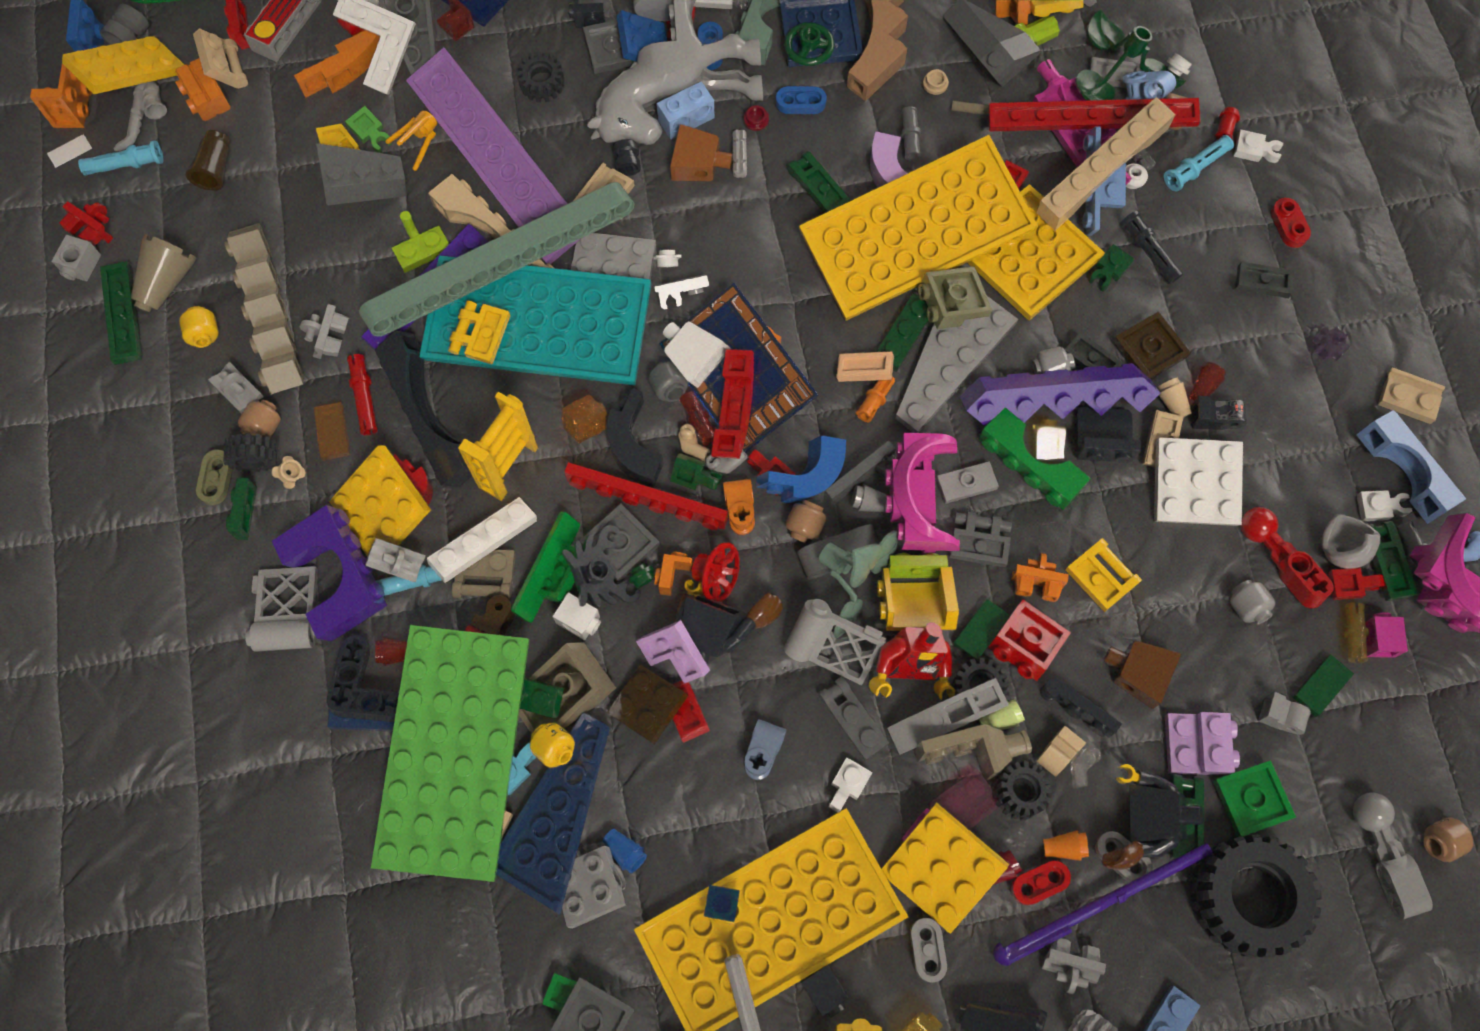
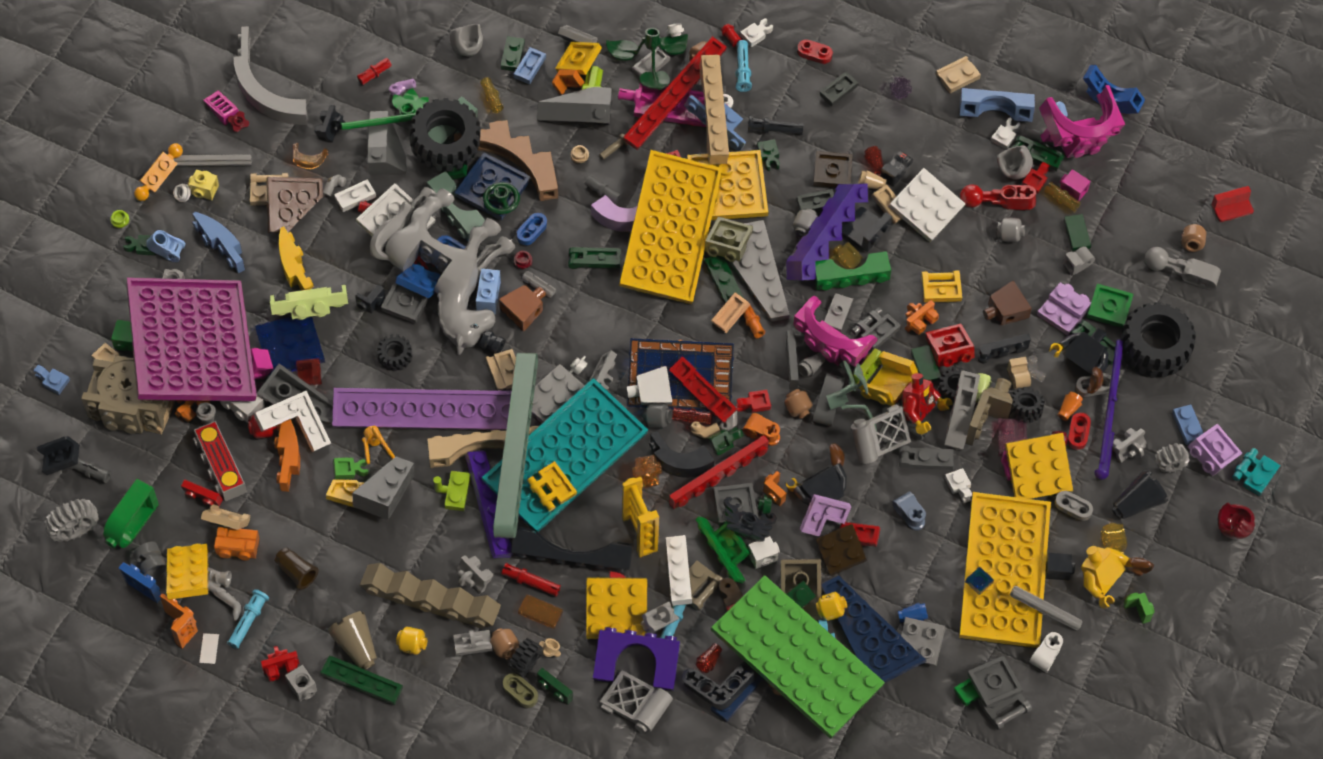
camera: 55 degrees left, 10 degrees down
(713, 570) = (789, 467): red wheel -> none
(823, 467) = (777, 378): blue arch -> none
(1144, 84) = (677, 55): light blue piece -> none

